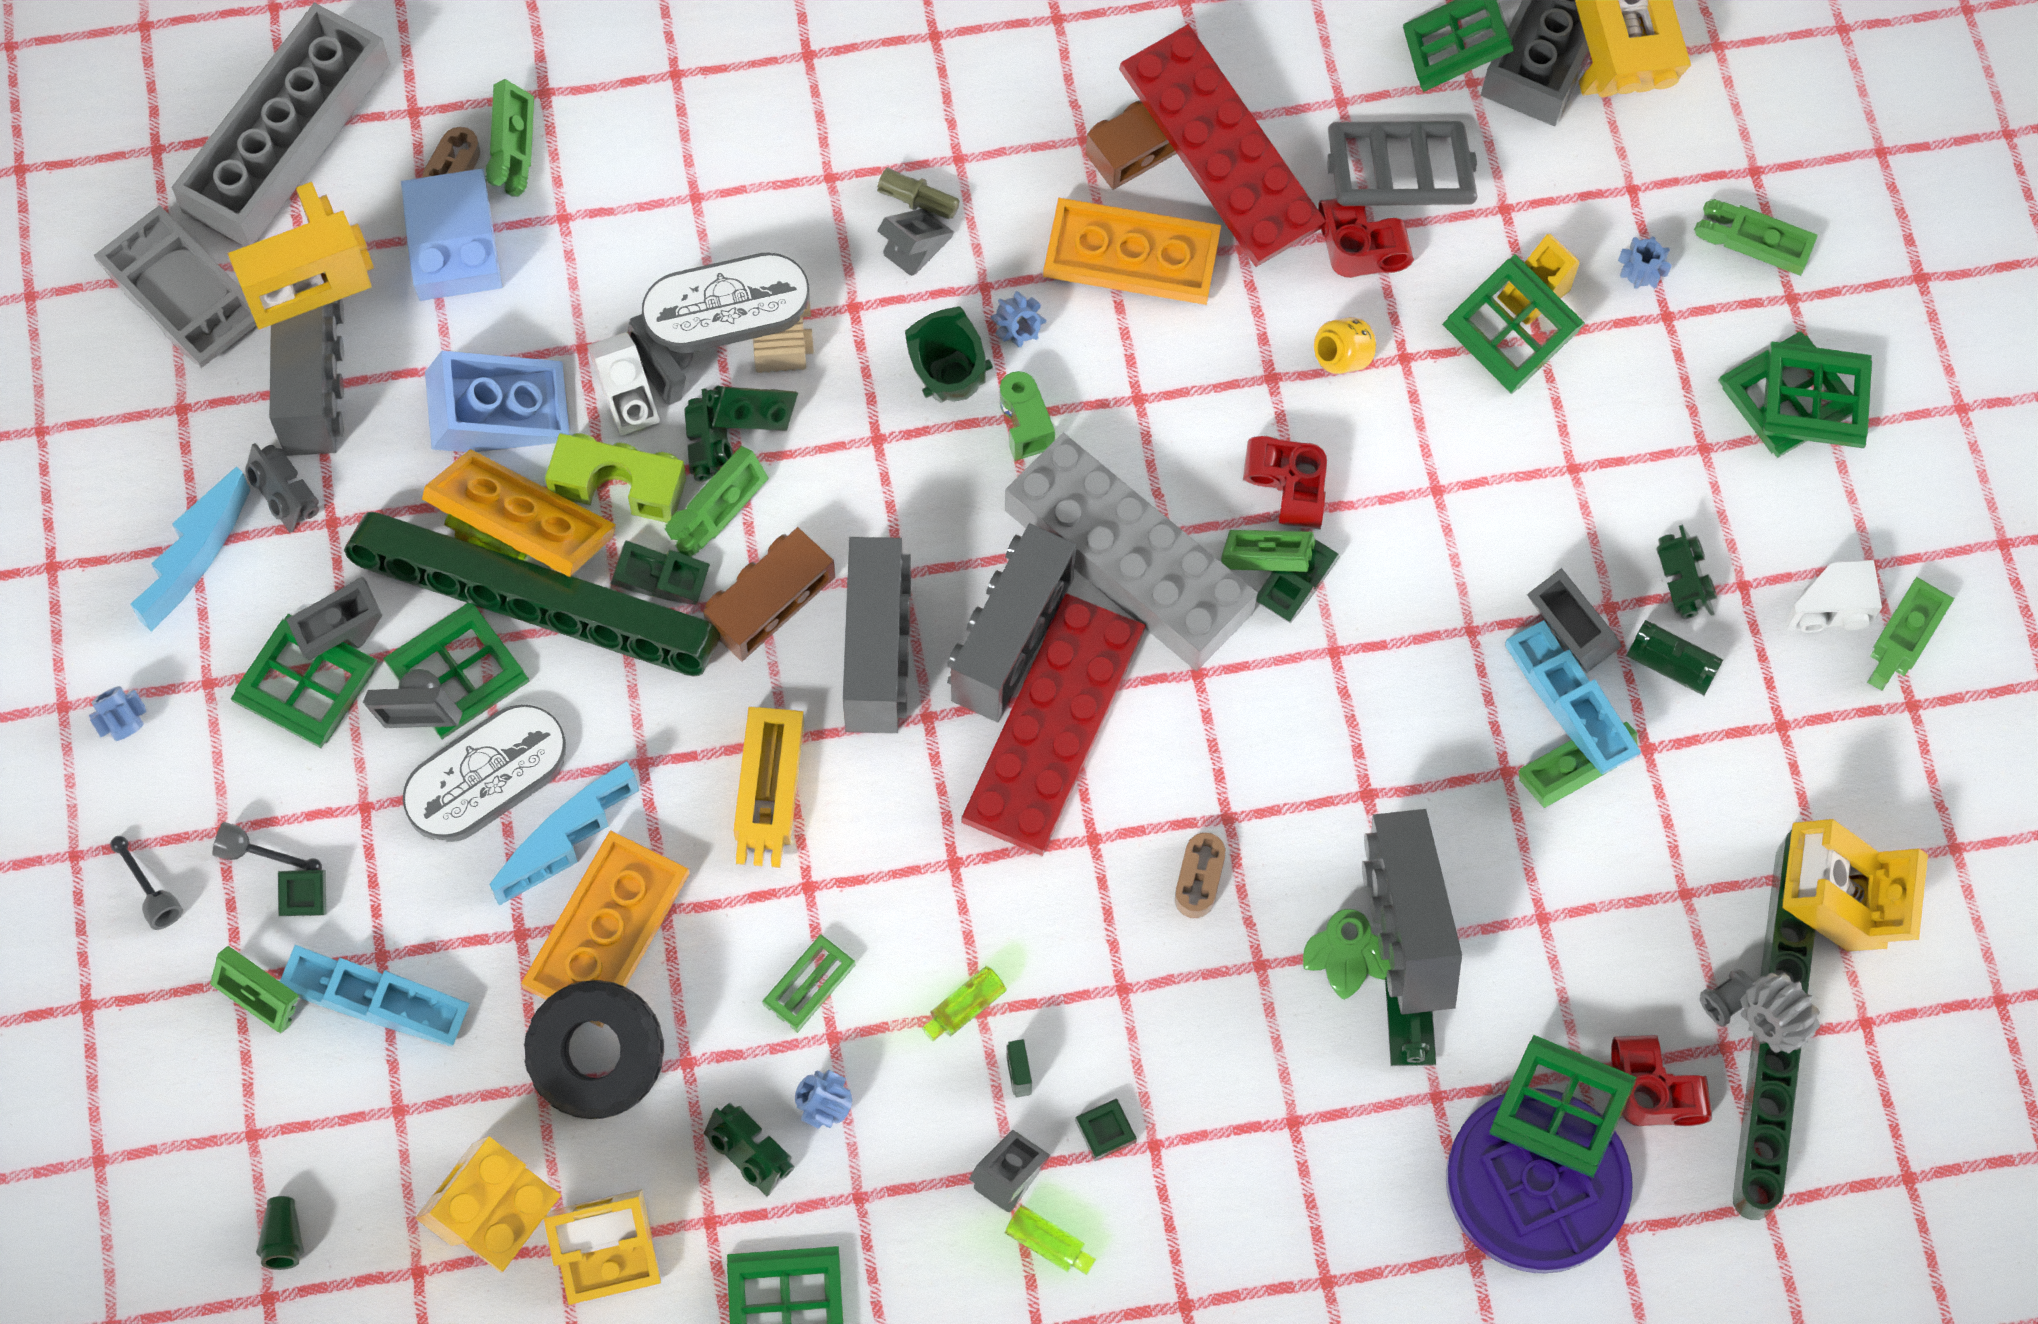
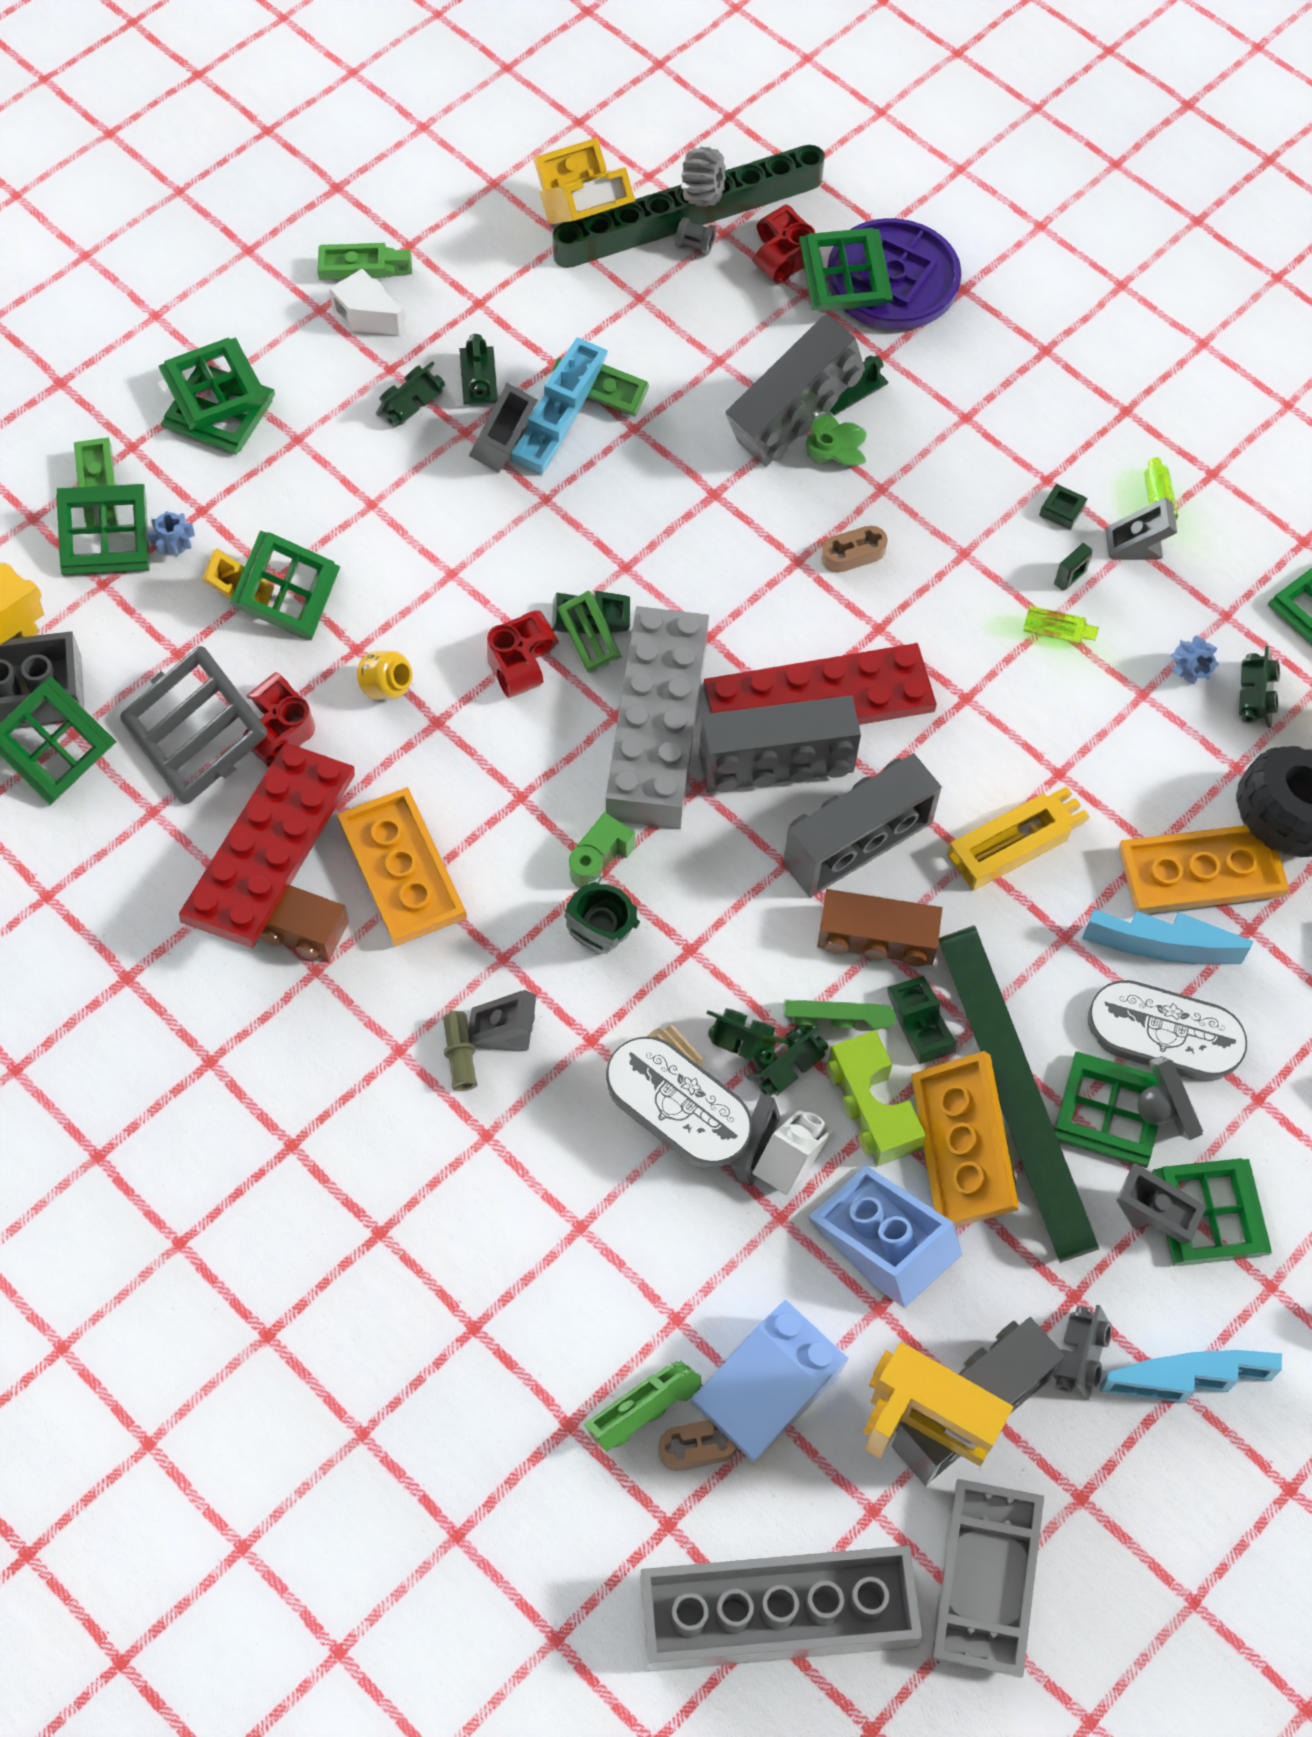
camera: 125 degrees left, 5 degrees down
(785, 1012) = (1124, 732): bright green tile -> none
(1027, 326) = (523, 901): medium blue gear -> none
(1720, 216) = (101, 497): none -> green piece

